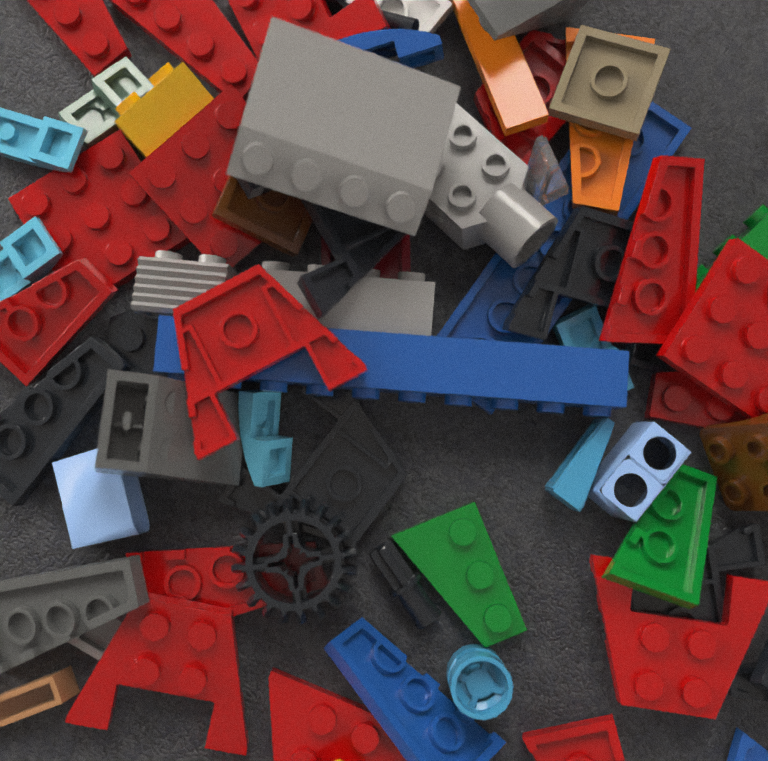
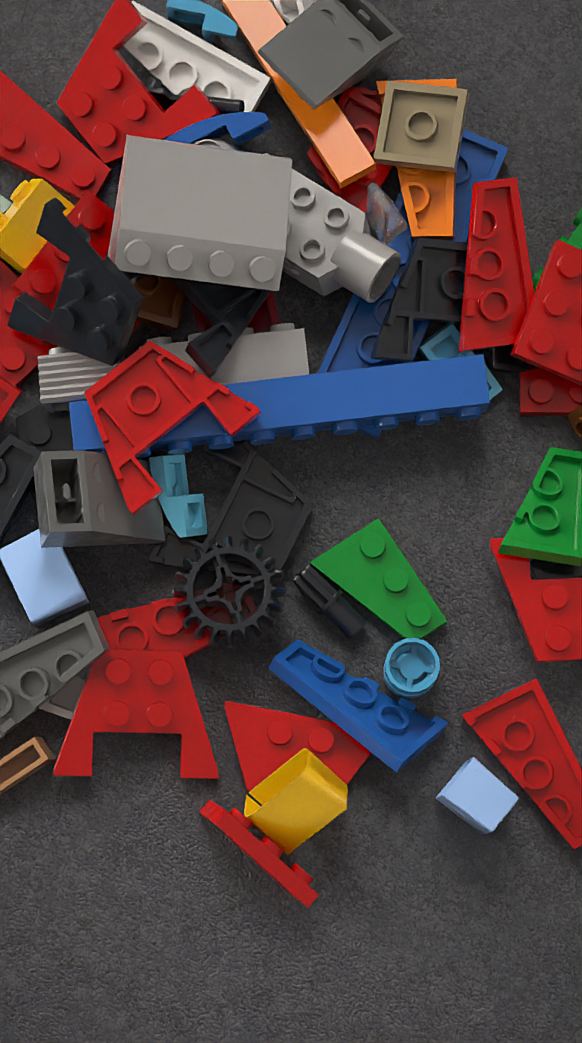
camera: 10 degrees left, 5 degrees down
(202, 206) = (94, 301): none -> black wing
(577, 472) = (463, 477): dark azure slope -> none
(632, 444) = (512, 497): light blue piece -> none

